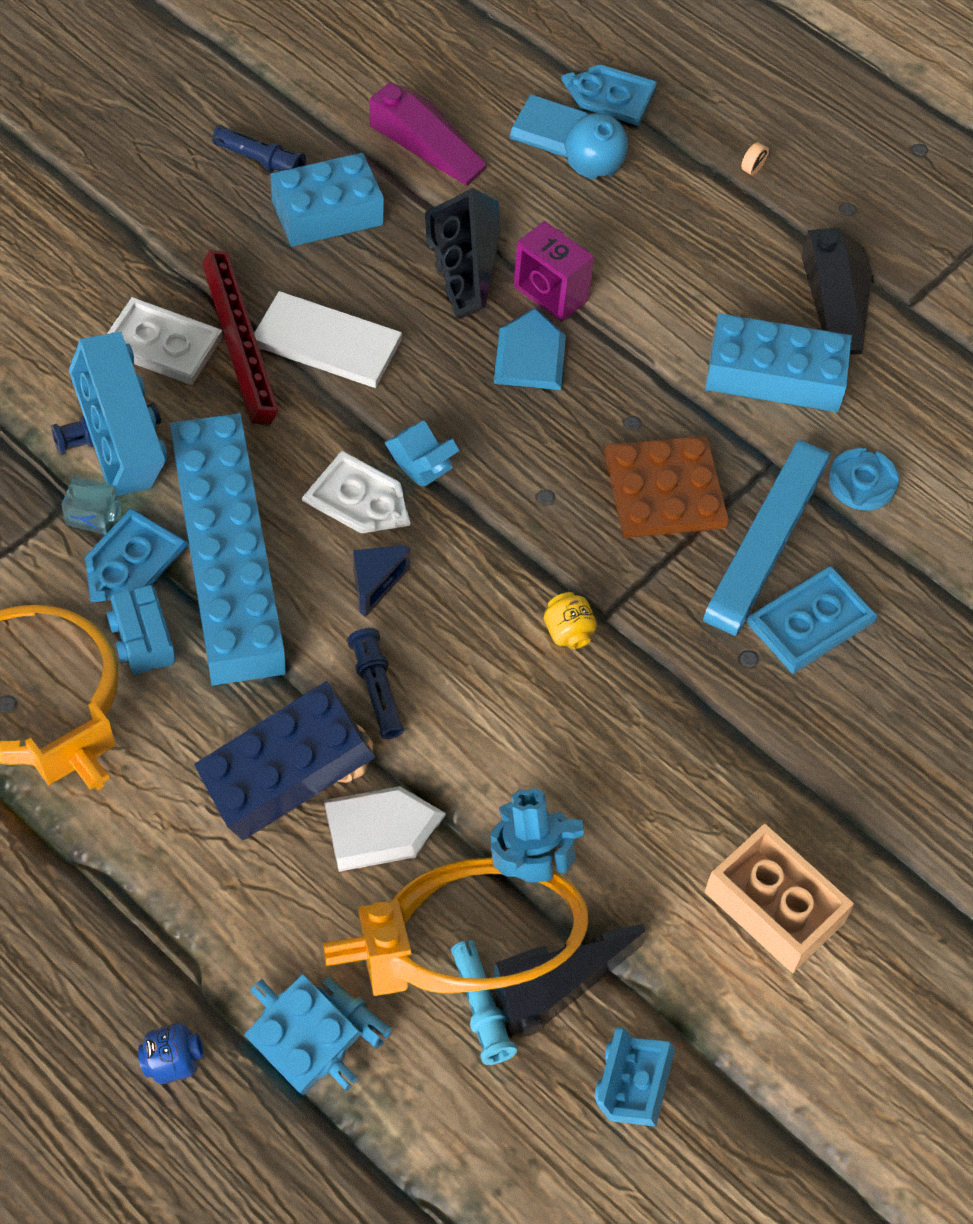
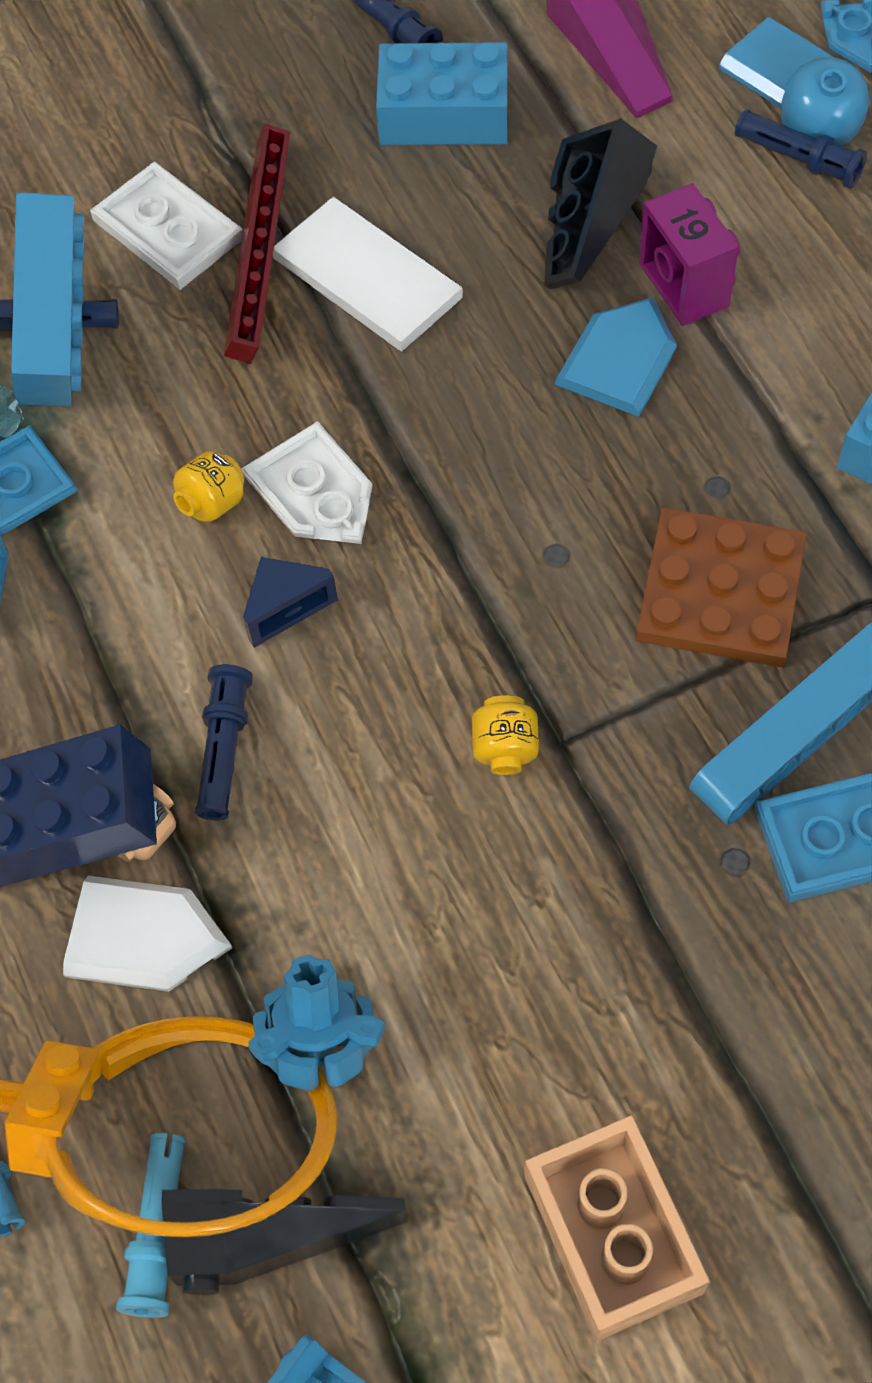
camera: 30 degrees right, 5 degrees up
(227, 550) = (112, 513): dark azure brick -> none
(287, 515) = (208, 486): none -> yellow head
(420, 453) = (412, 453): dark azure brick -> none
(606, 182) = (817, 154): none -> dark blue pin

